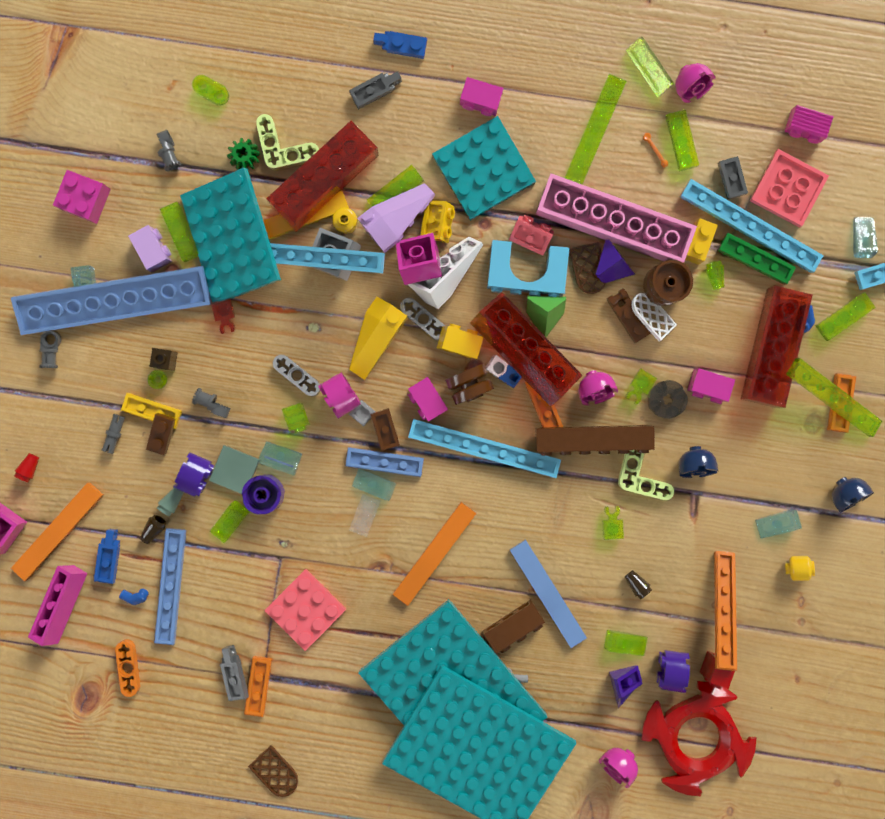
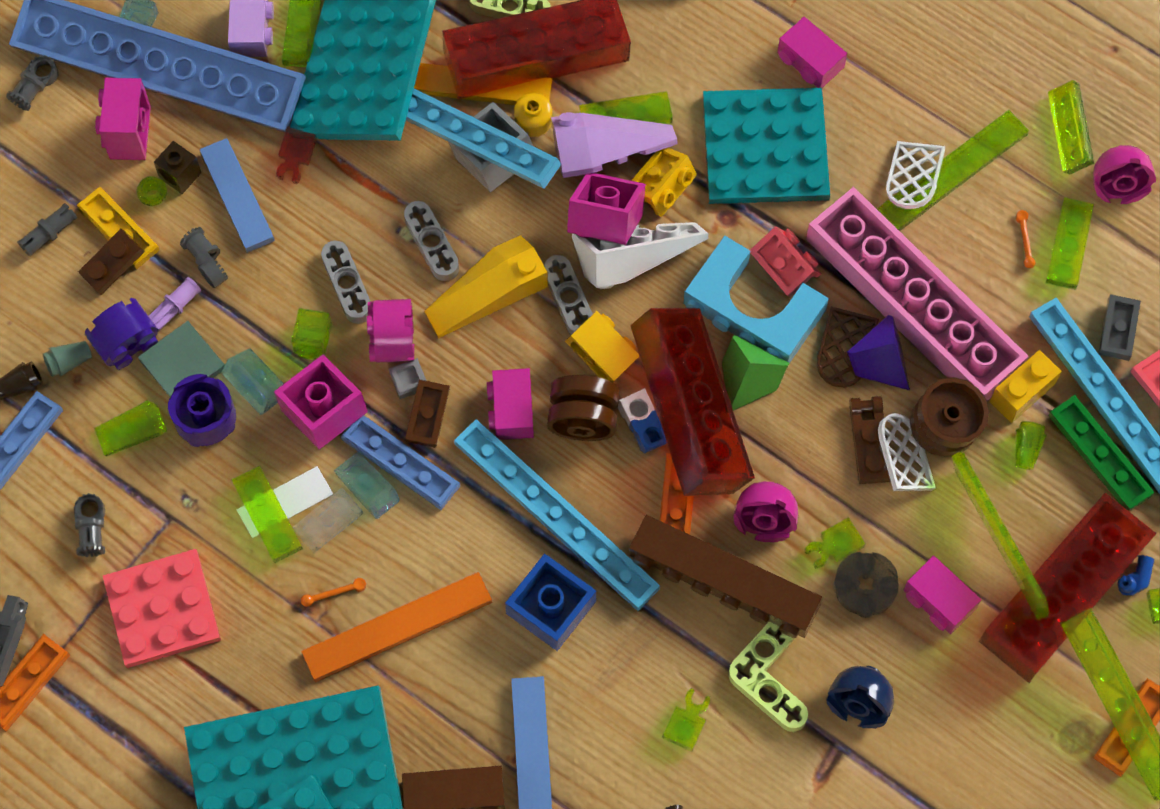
camera: 30 degrees right, 20 degrees down
(116, 348) = (124, 118): none -> dark pink brick
(205, 356) = (237, 195): none -> medium blue tile
(209, 440) = (174, 303): none -> lavender axle
(241, 588) = (89, 527): none -> dark grey connector
(315, 322) = (431, 253): none -> light grey beam
(324, 456) = (321, 401): none -> dark pink brick
(331, 530) = (267, 514): none -> clear neon green plate
(335, 516) = (295, 496): none -> white sticker
(379, 564) = (359, 585): none -> orange hinge
(510, 501) = (550, 602): none -> blue brick
(590, 144) = (916, 164): none -> white window
(730, 339) = (1000, 536): none -> clear neon green tile

